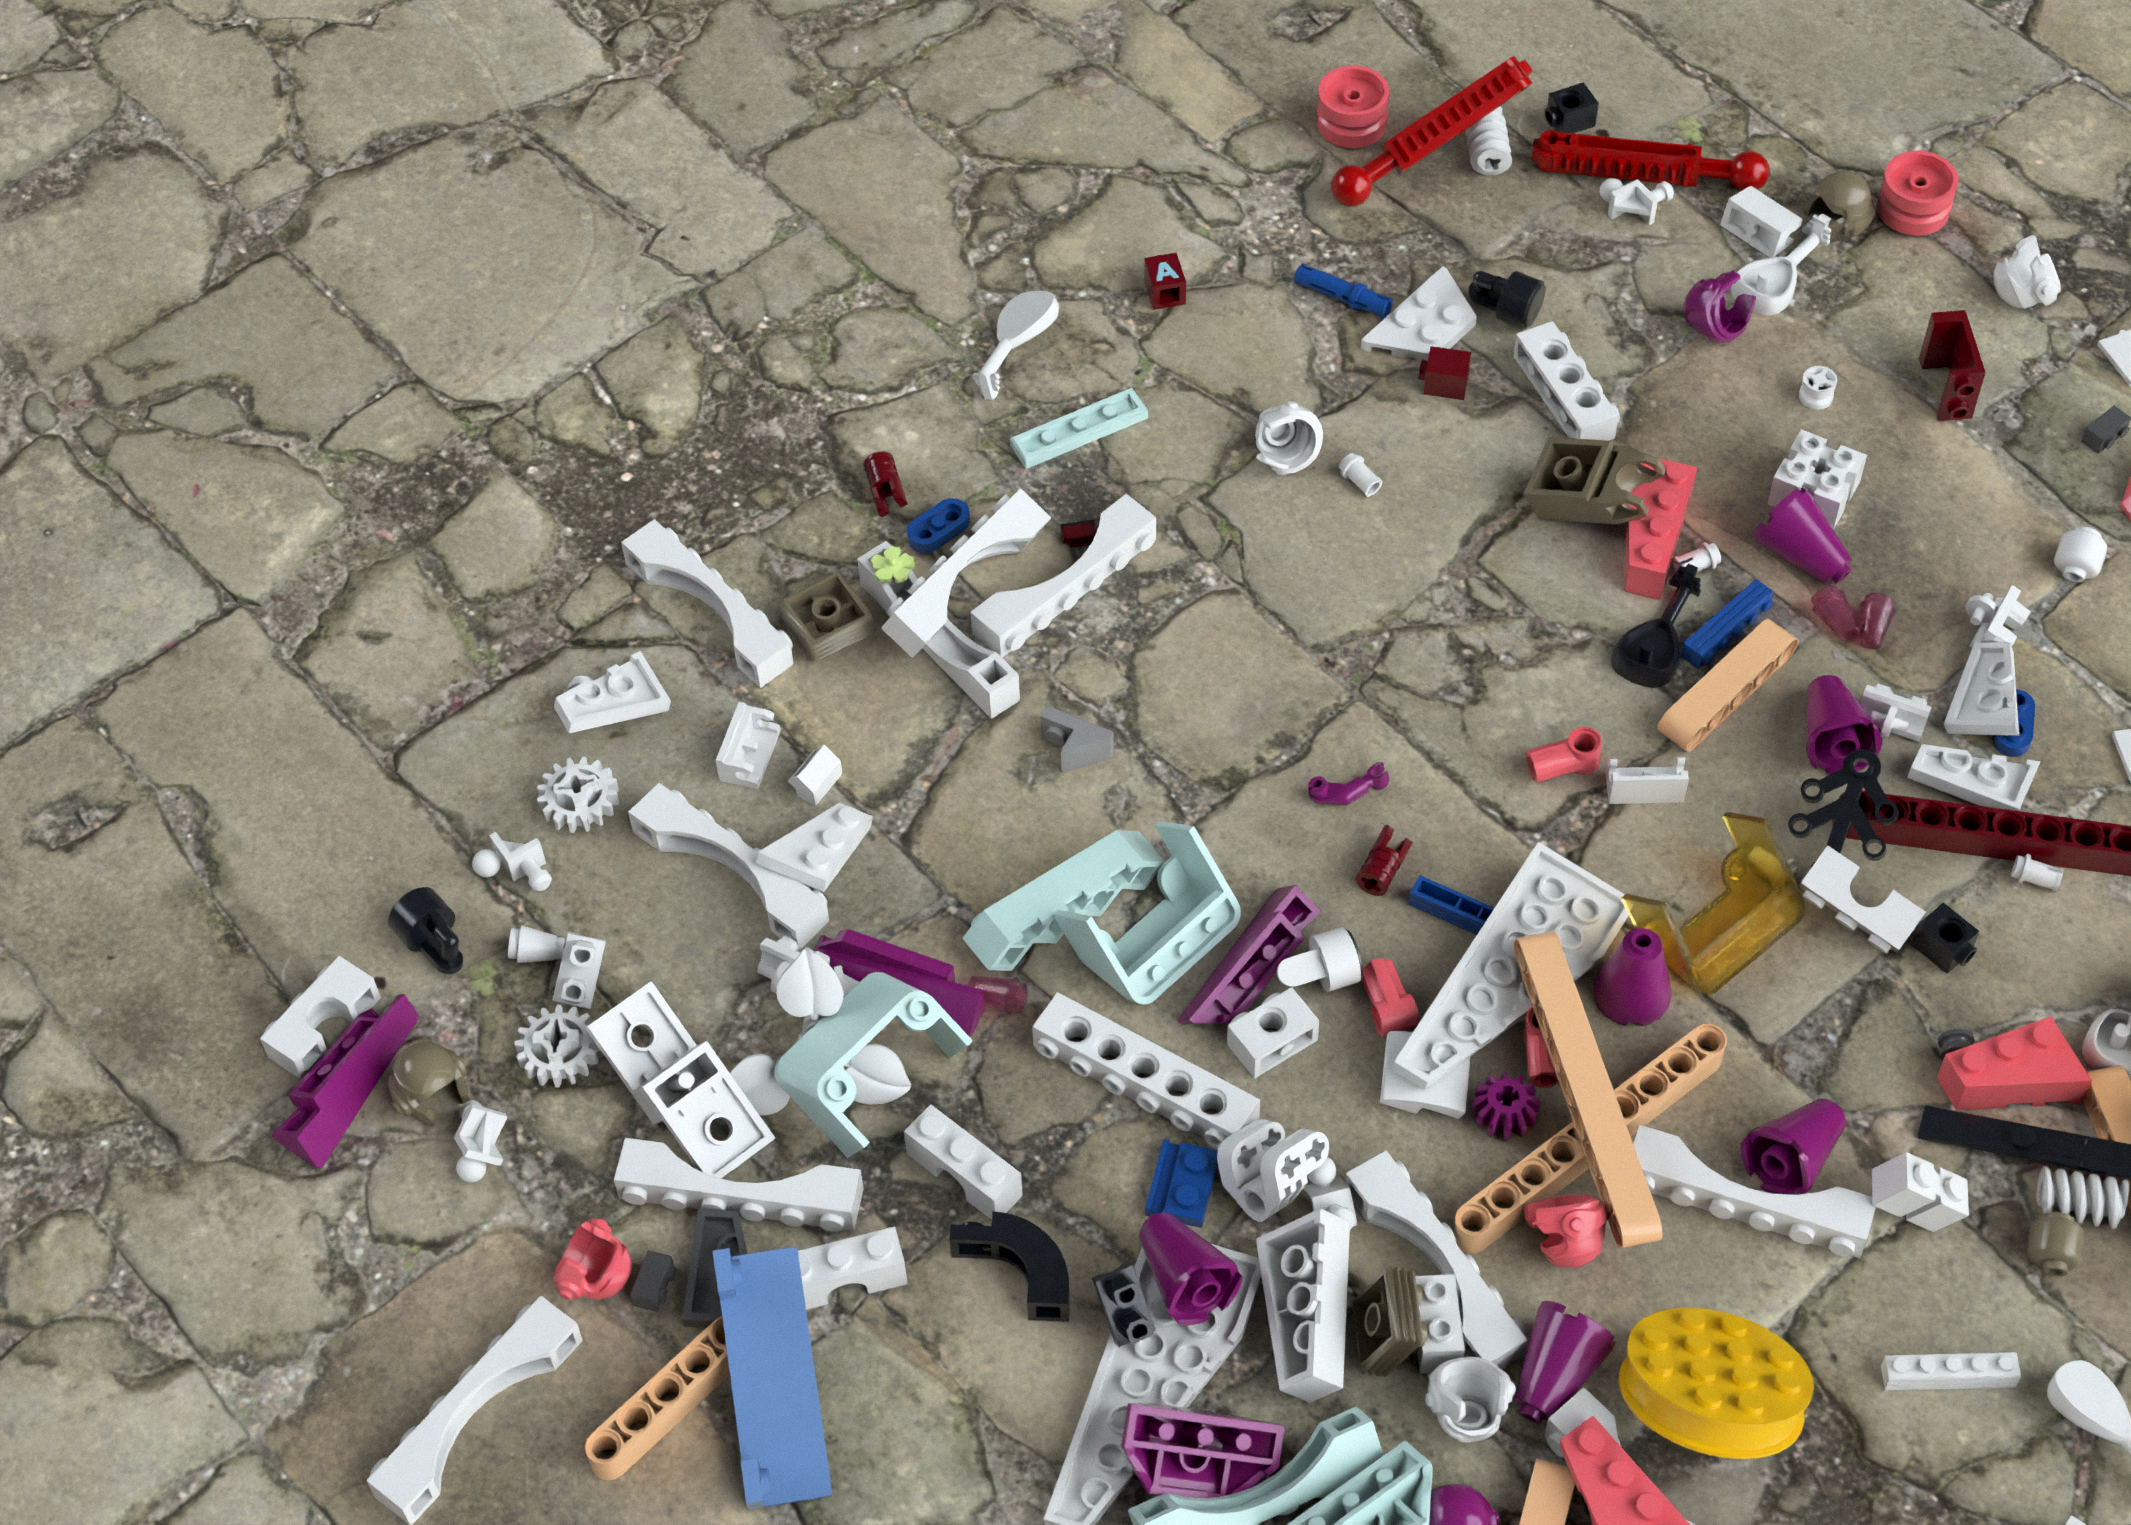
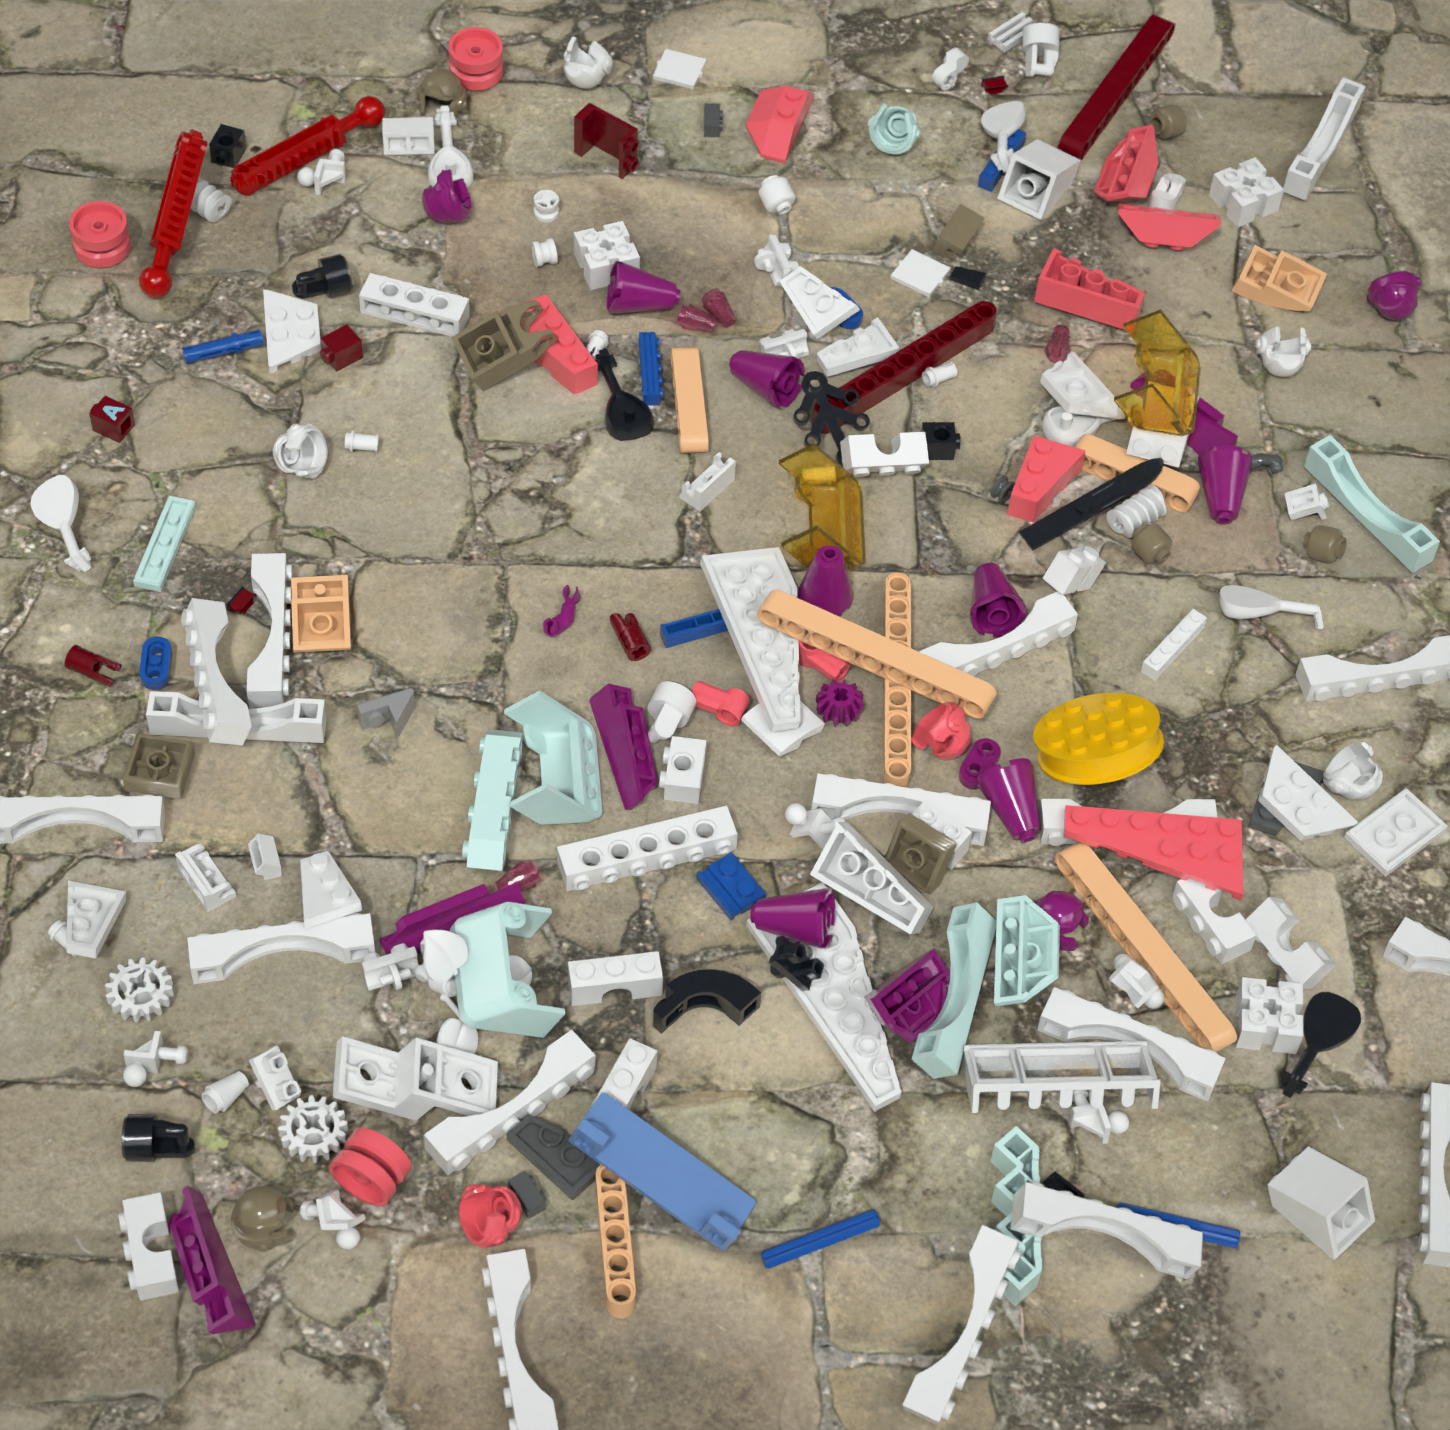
camera: 55 degrees left, 0 degrees up
(555, 1120) = (370, 1167): none -> coral wheel
(892, 565) = (174, 701): yellowish green plant -> none
(1127, 600) = (320, 613): none -> light nougat slope
(1259, 1174) = (782, 849): white piece -> none
(1469, 1397) = (997, 853): white helmet -> none
(1565, 755) = (655, 503): coral piece -> none
(1581, 1295) = (978, 761): none -> magenta plate
(1757, 430) = (544, 252): none -> white wheel

